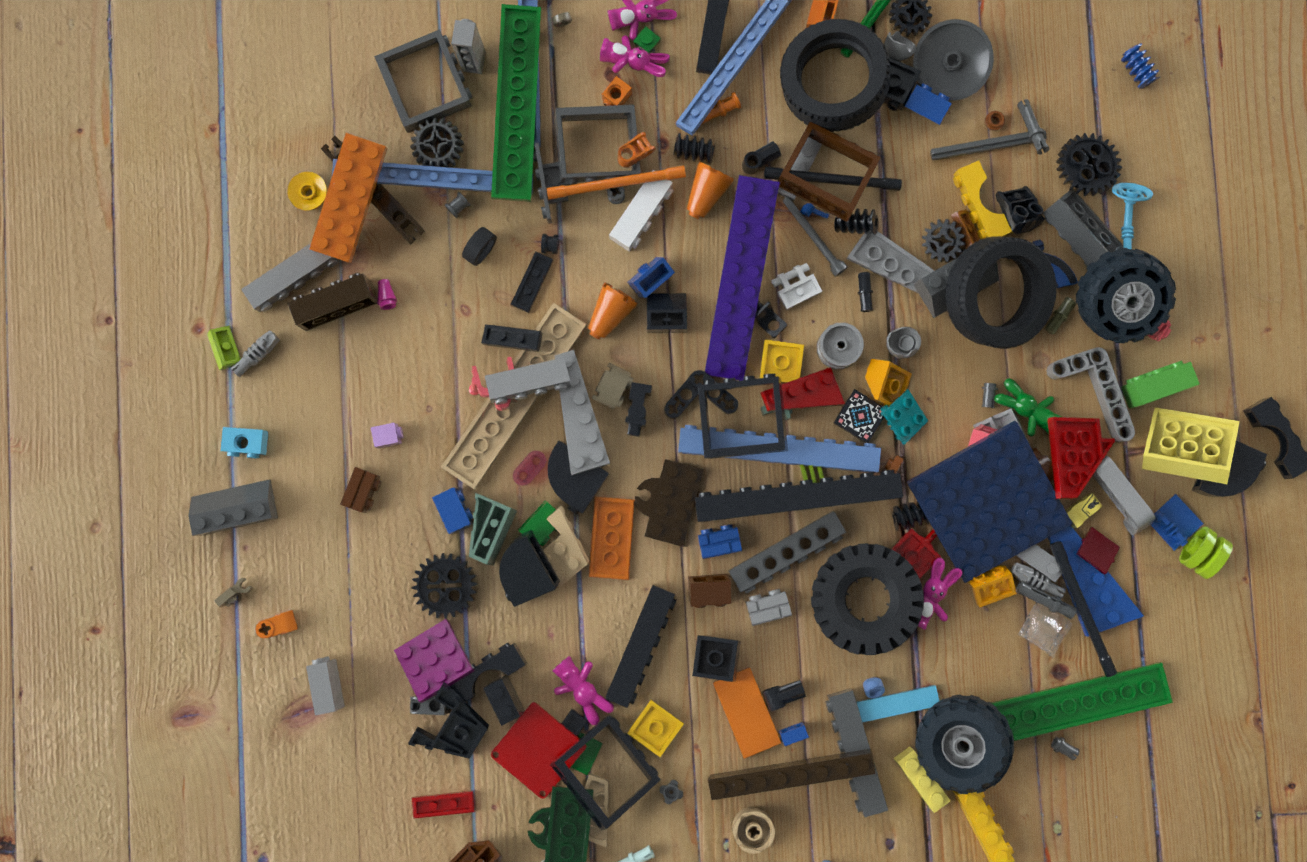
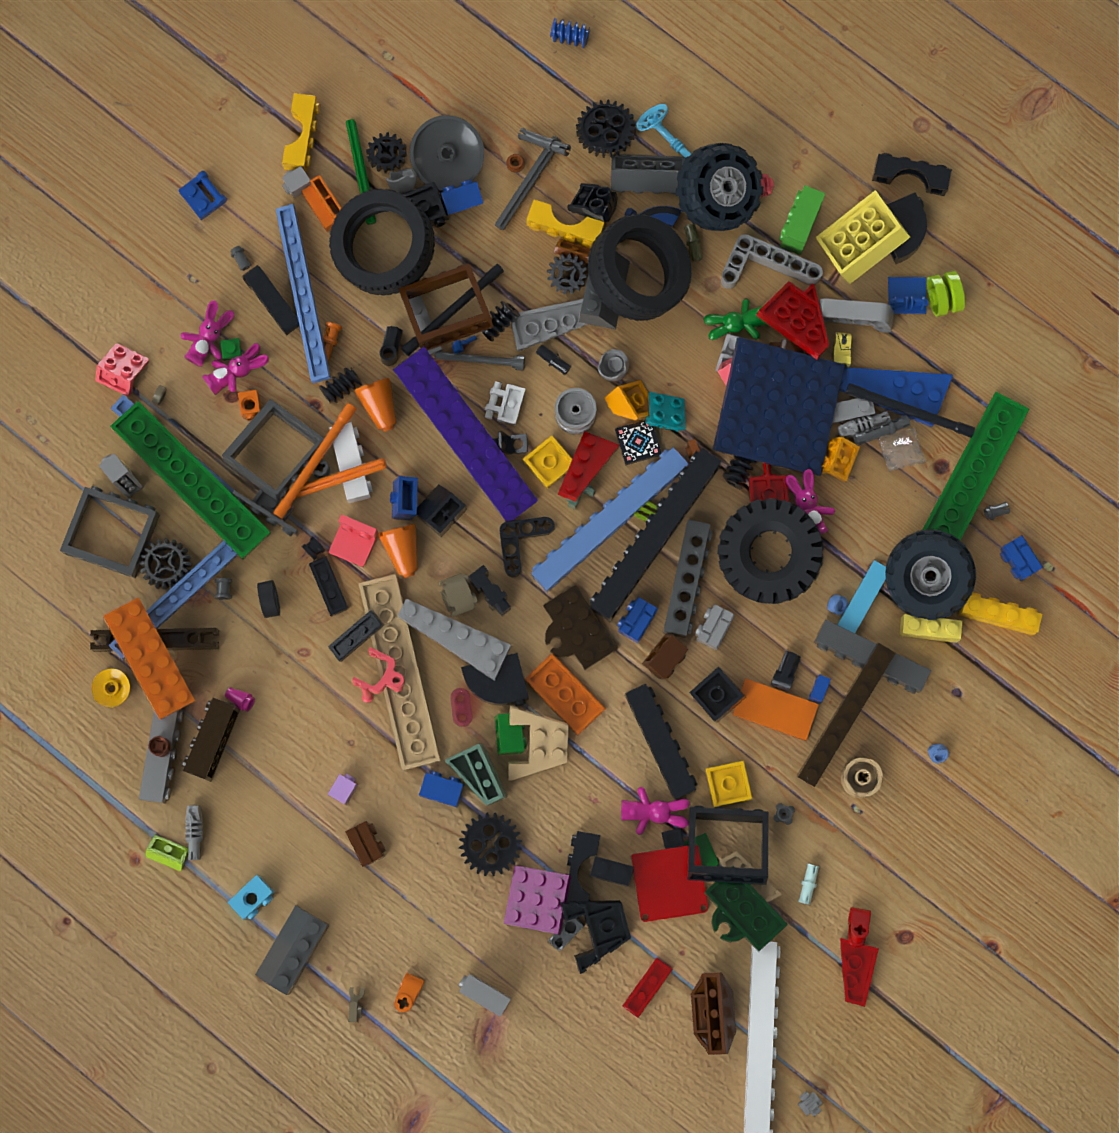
camera: 50 degrees left, 5 degrees down
(288, 265) = (157, 743): none -> copper wheel
(526, 570) = (533, 773): black brick -> none
(527, 380) = (399, 649): light grey brick -> none
(582, 269) = (353, 541): none -> coral bracket
(623, 215) = (342, 477): none -> orange axle
(638, 148) = (304, 423): orange piece -> none
(731, 383) = (589, 540): black window -> none
(988, 395) = (704, 340): dark grey pin -> none
(1043, 802) = (1021, 558): none -> blue brick
(1098, 550) = (879, 364): dark red piece -> none

